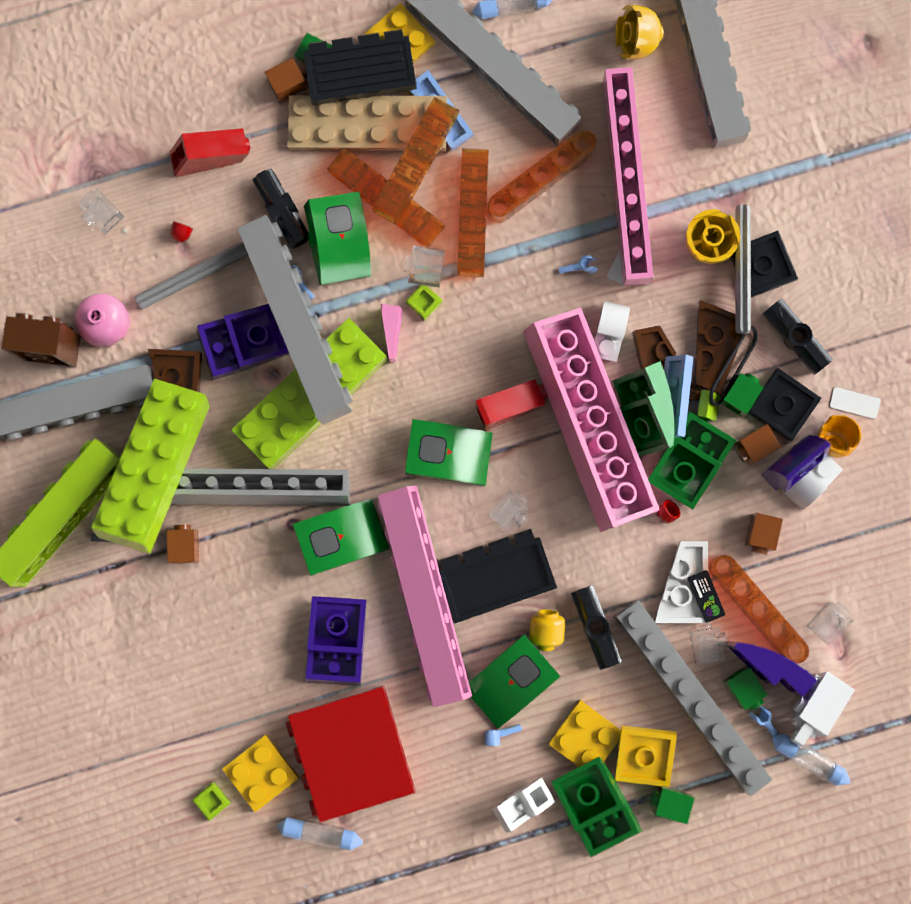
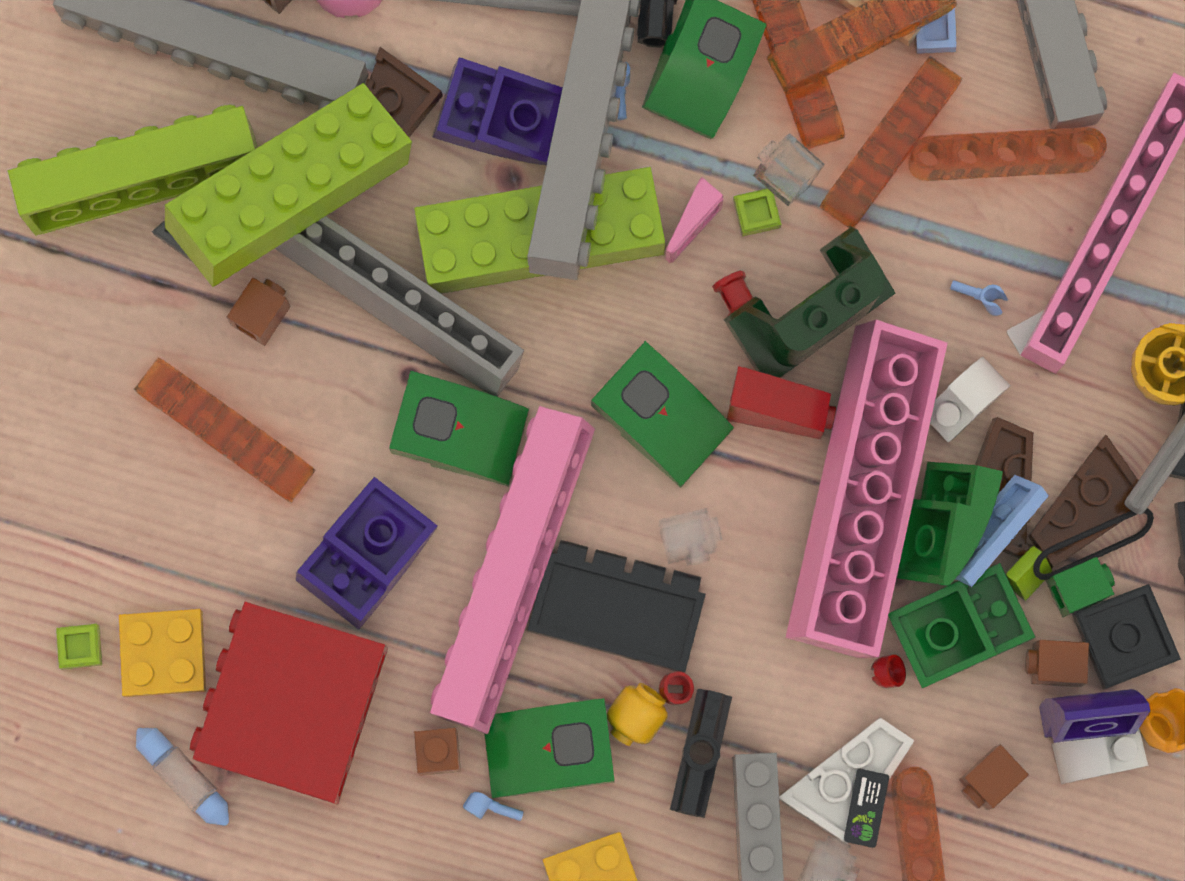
camera: 30 degrees right, 5 degrees down
(209, 626) = (224, 430): none -> clear orange beam
(445, 357) = (733, 290): none -> red bush
(451, 725) = (437, 751): none -> dark orange brick
(510, 315) = (785, 342): none -> dark green windscreen
(562, 605) = (676, 679): none -> red hinge

